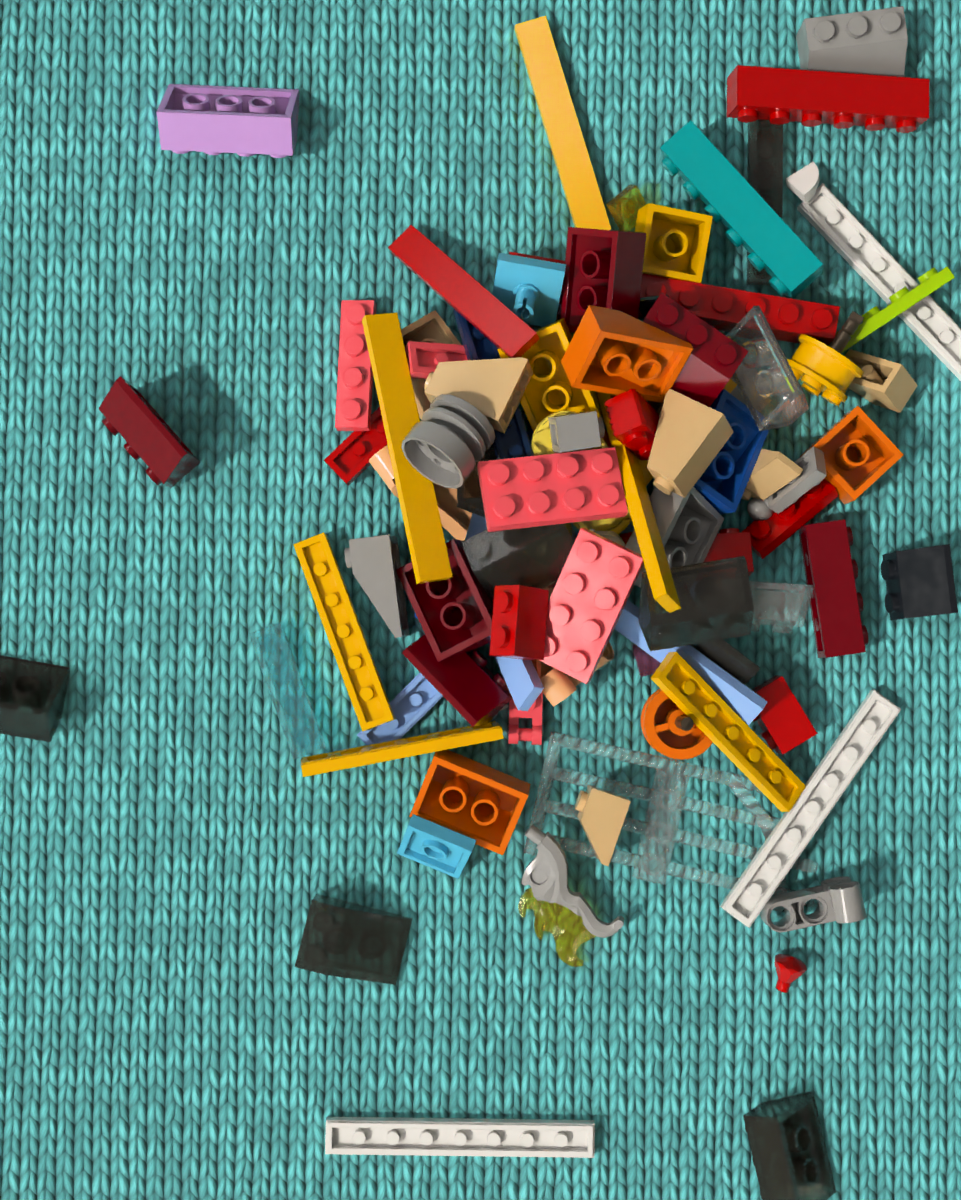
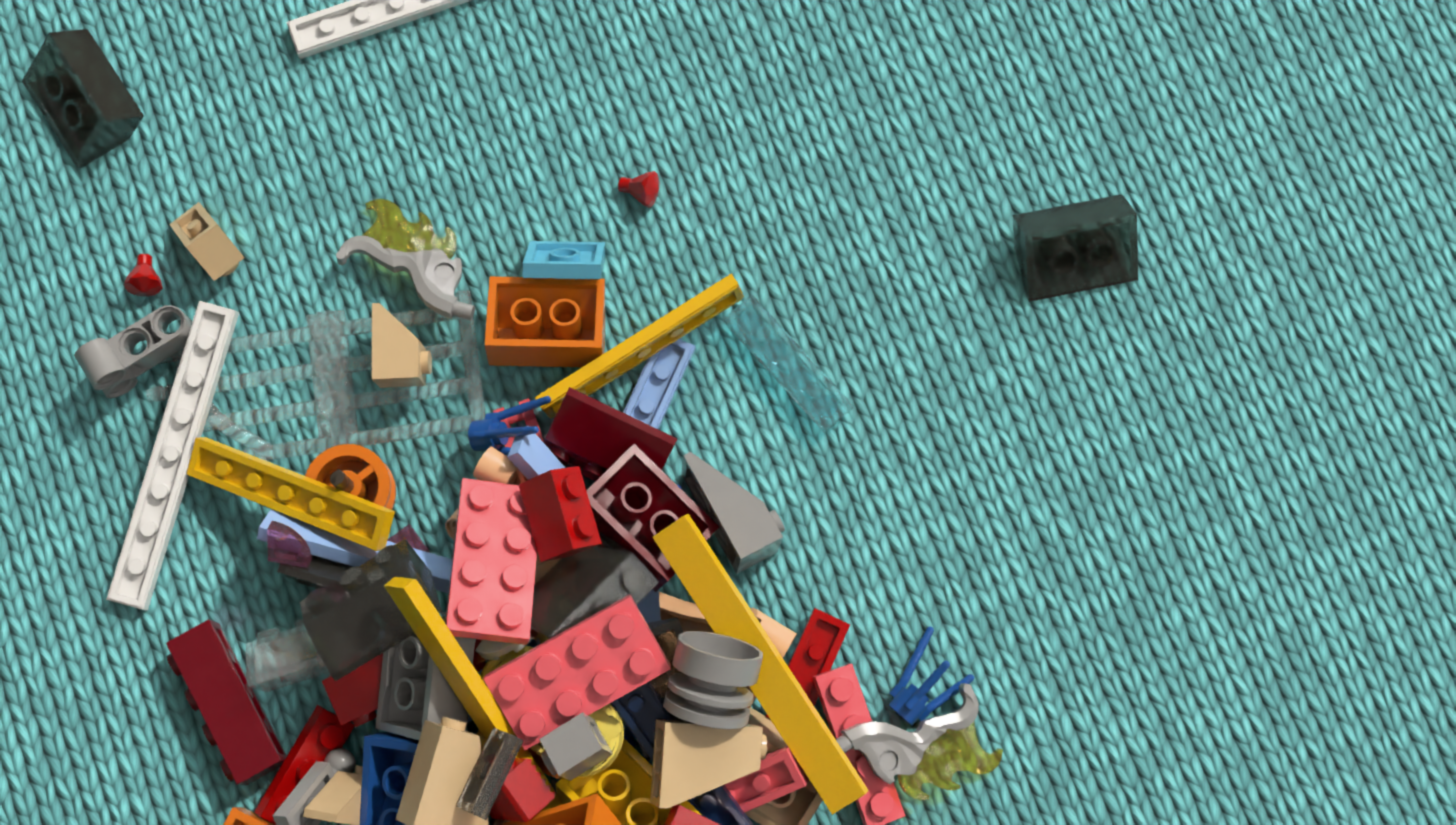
camera: 155 degrees right, 10 degrees down
(146, 434) = (1054, 576): dark red slope -> none
(299, 381) = (911, 702): none -> blue plant
(304, 338) = (929, 753): none -> piece
(344, 632) = (752, 447): yellow plate -> none
(347, 888) = (643, 188): none -> red rock
(353, 941) = (615, 137): clear smoke slope -> none
(548, 720) = (495, 434): none -> blue plant
(649, 433) = (489, 773): none -> clear smoke tile
(726, 981) = (207, 242): none -> tan slope
(745, 684) = (287, 546): none -> clear pink tile
(782, 718) = (233, 536): red brick -> none
(919, 582) = (128, 744): black slope -> none

